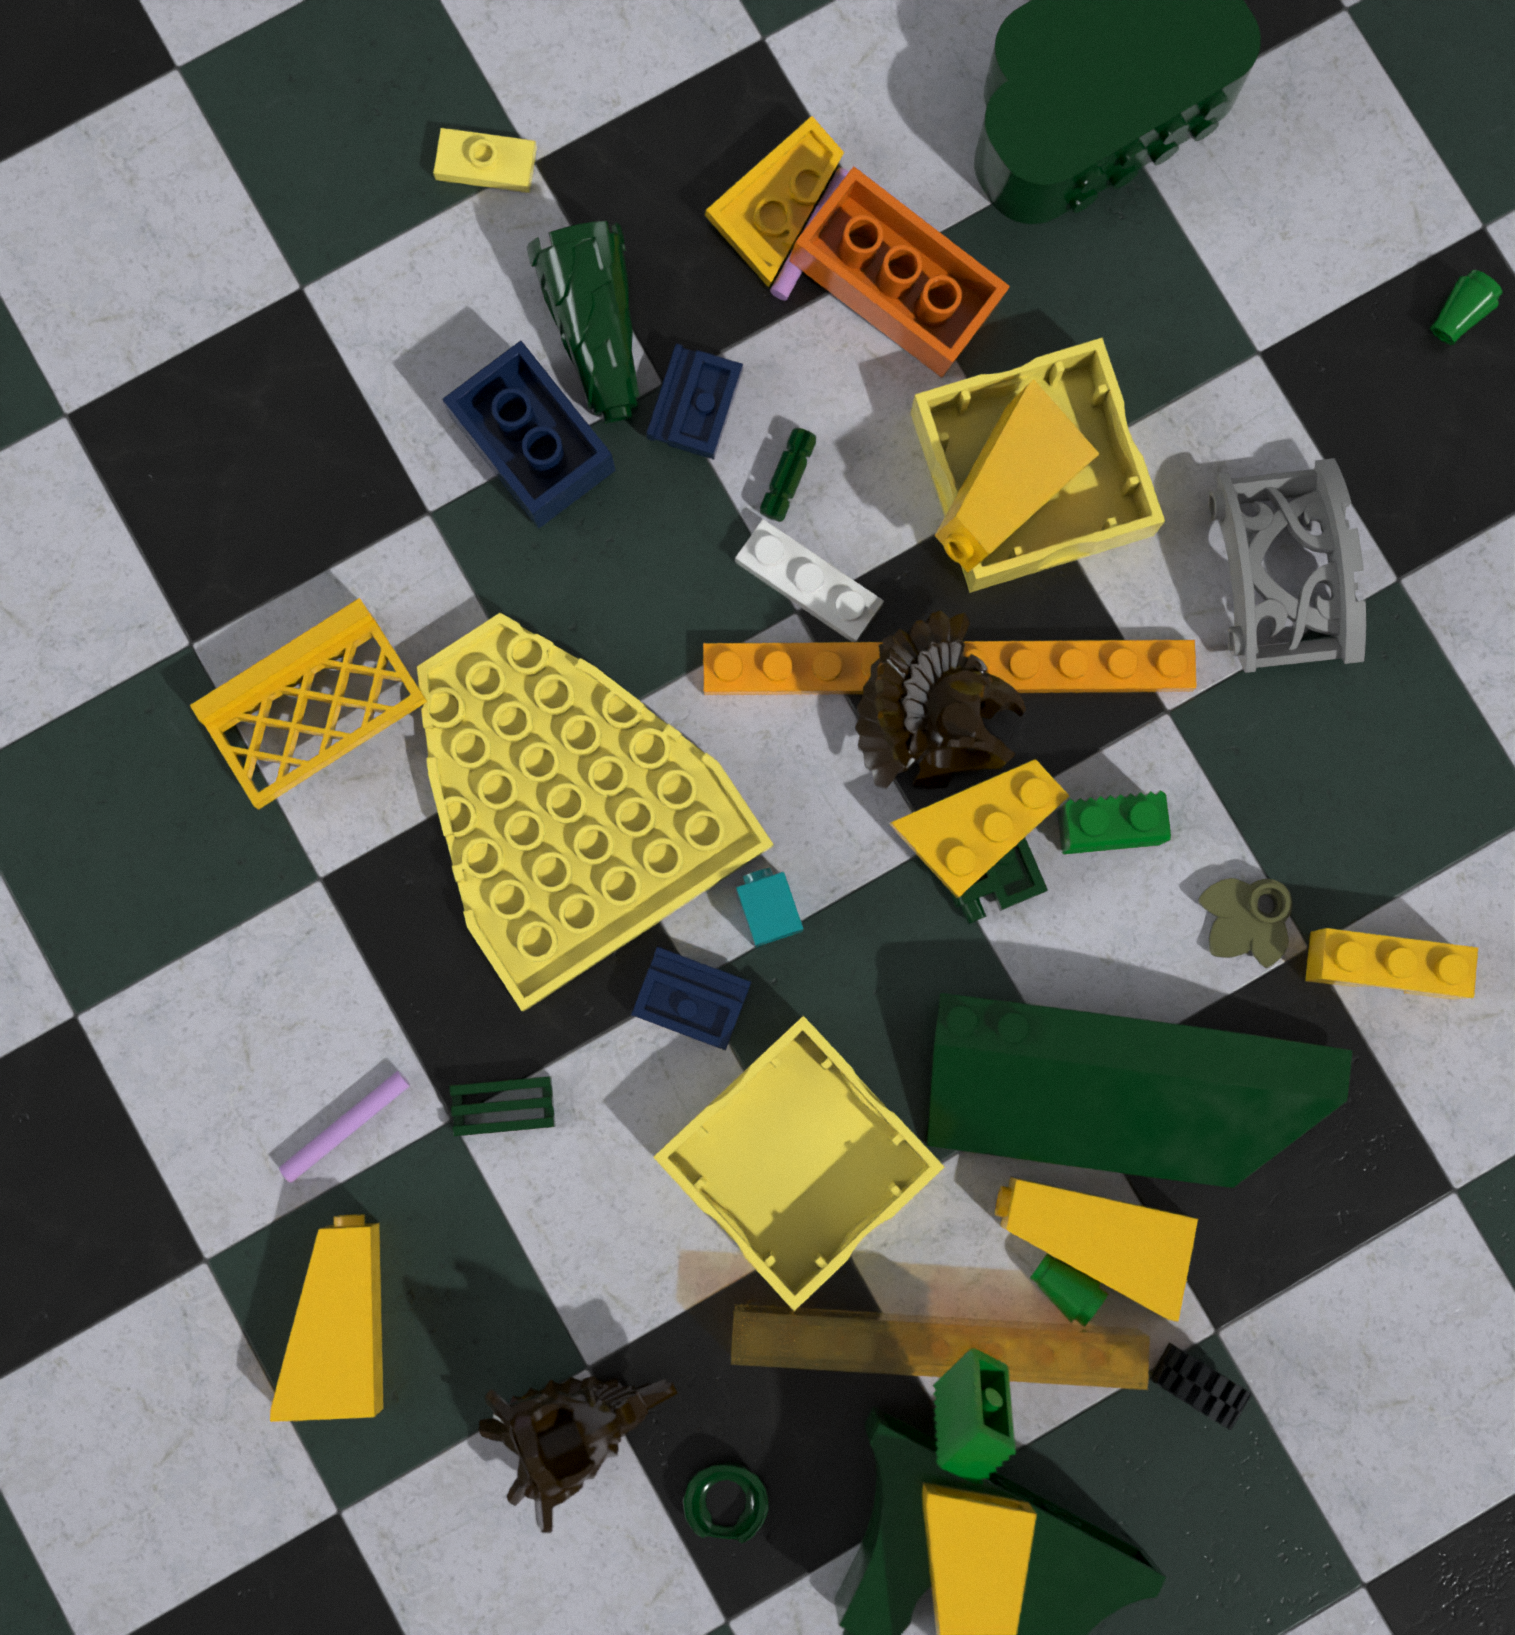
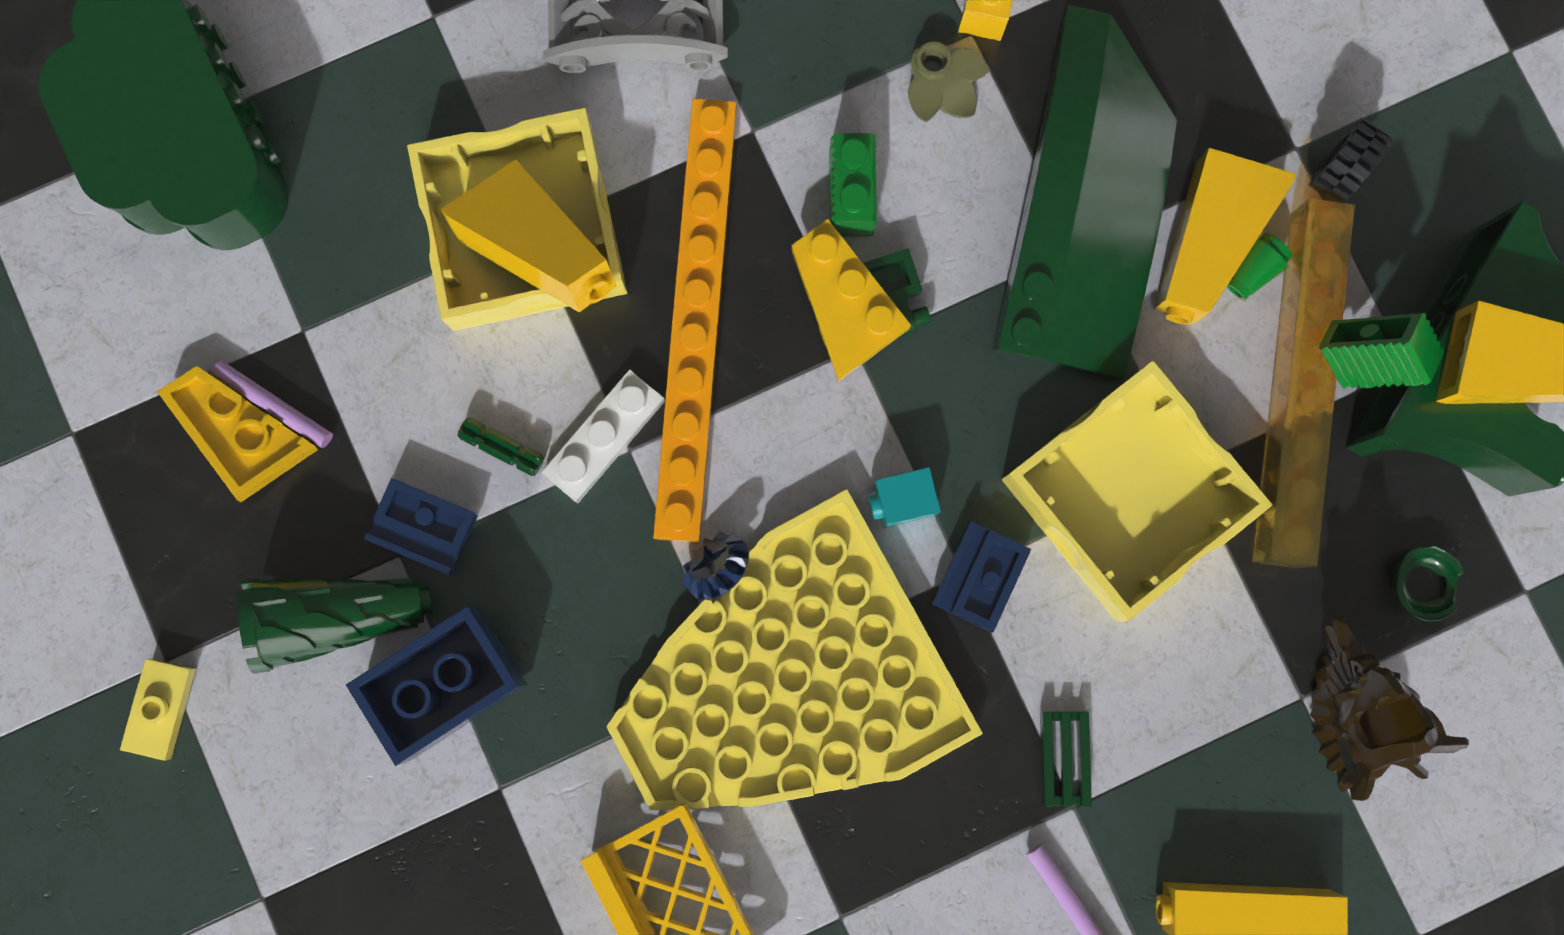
camera: 85 degrees left, 0 degrees up
(685, 722) = (730, 559): none -> dark blue gear
(897, 272) = (321, 324): orange brick -> none
(929, 706) = (734, 334): dark brown piece -> none

